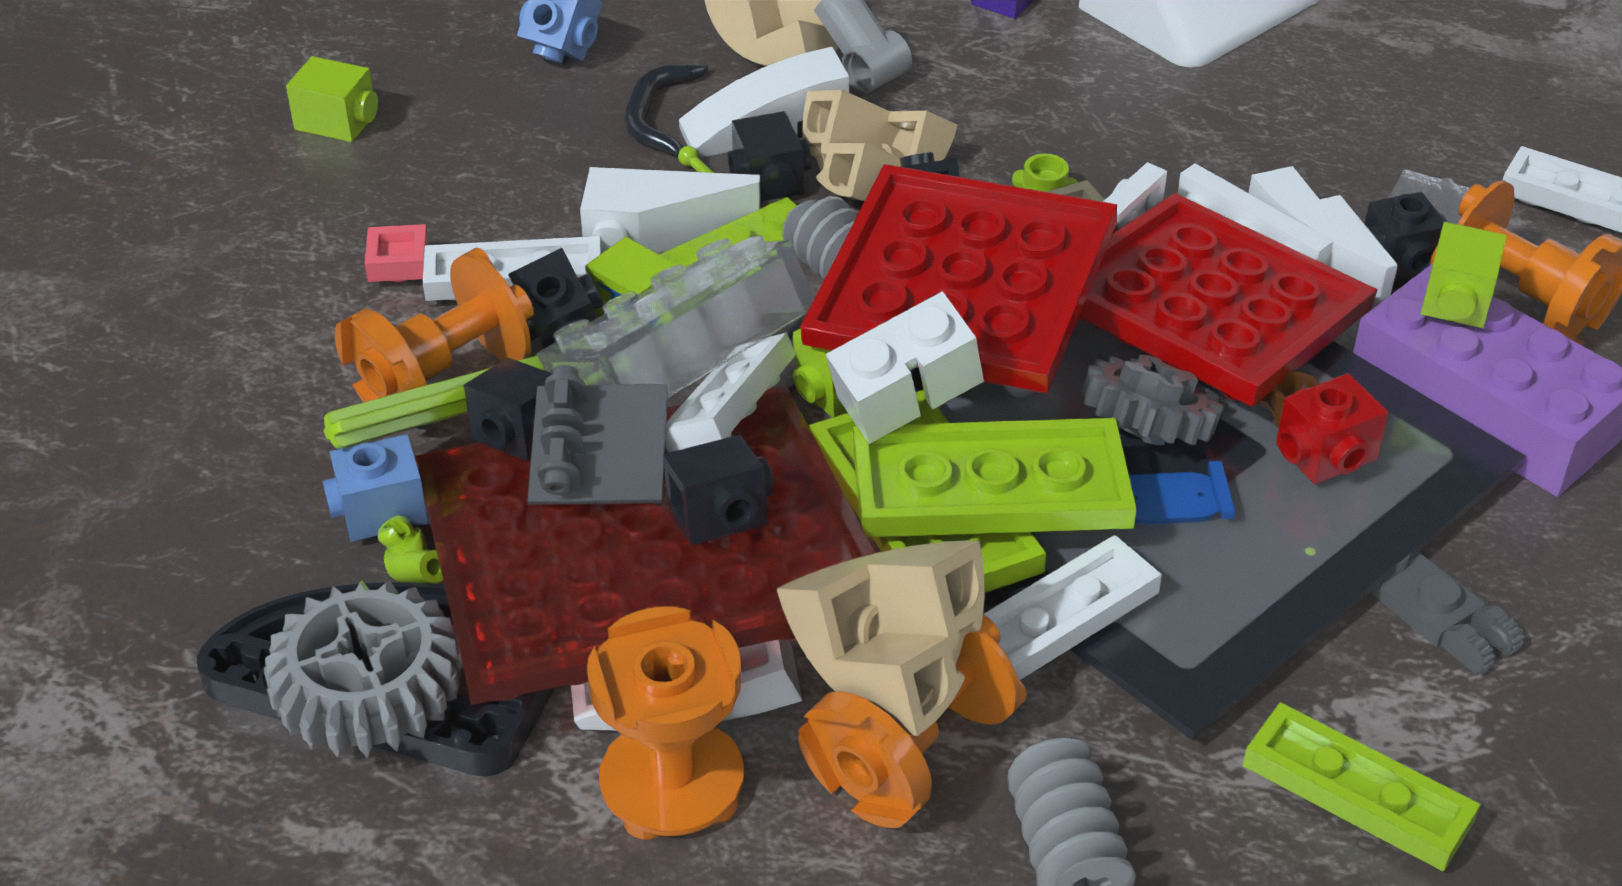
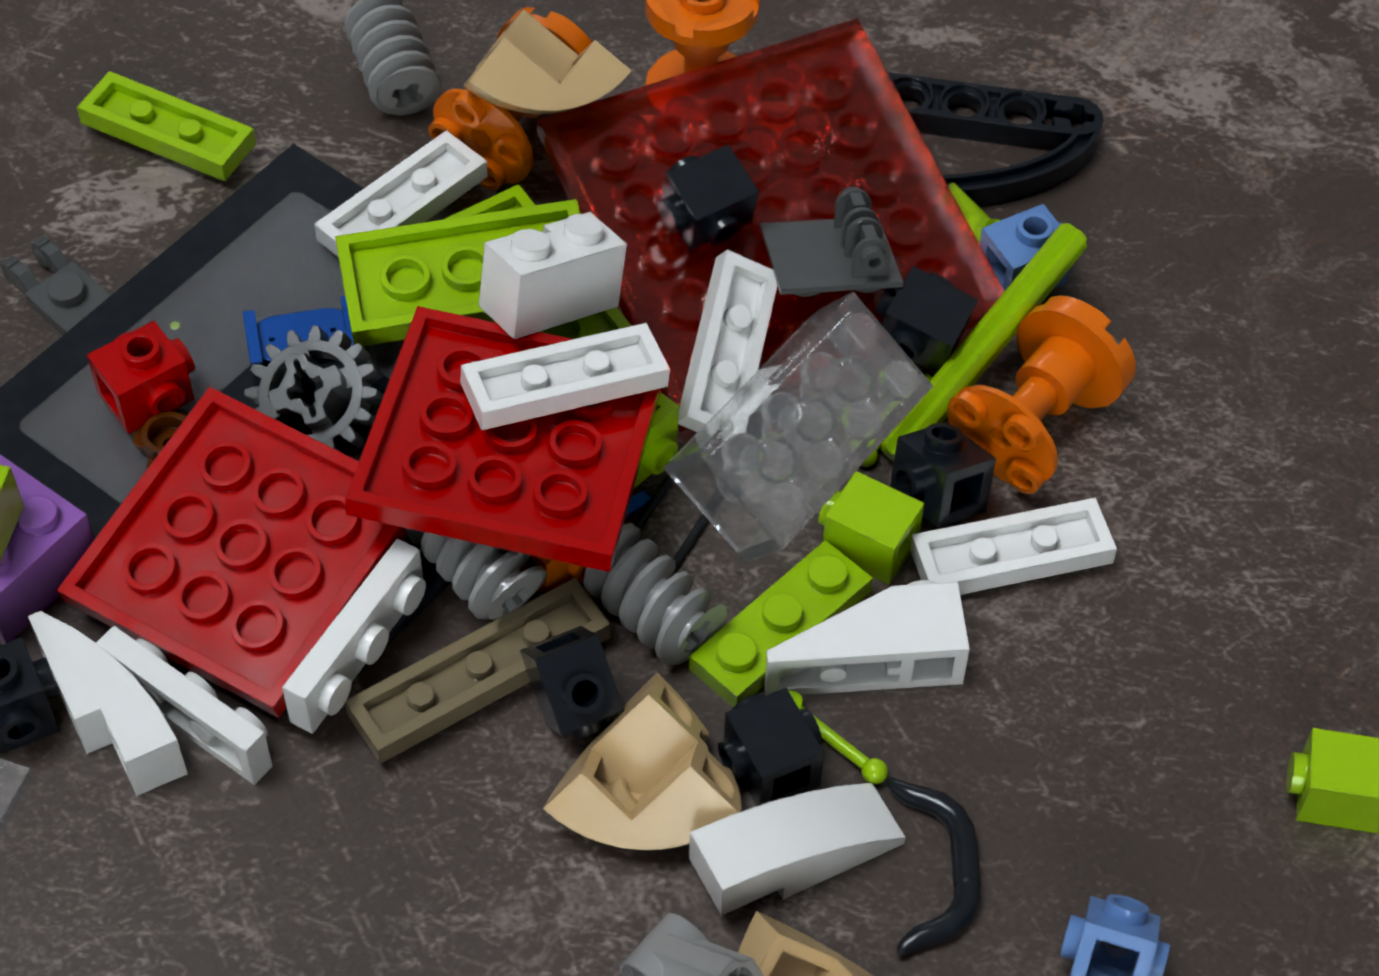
camera: 170 degrees right, 10 degrees up
(363, 668) = (958, 69): light grey gear -> none
(395, 253) = (1149, 554): coral plate -> none
(905, 274) = (564, 376): none -> white plate
(1043, 173) = (425, 760): lime plate -> none

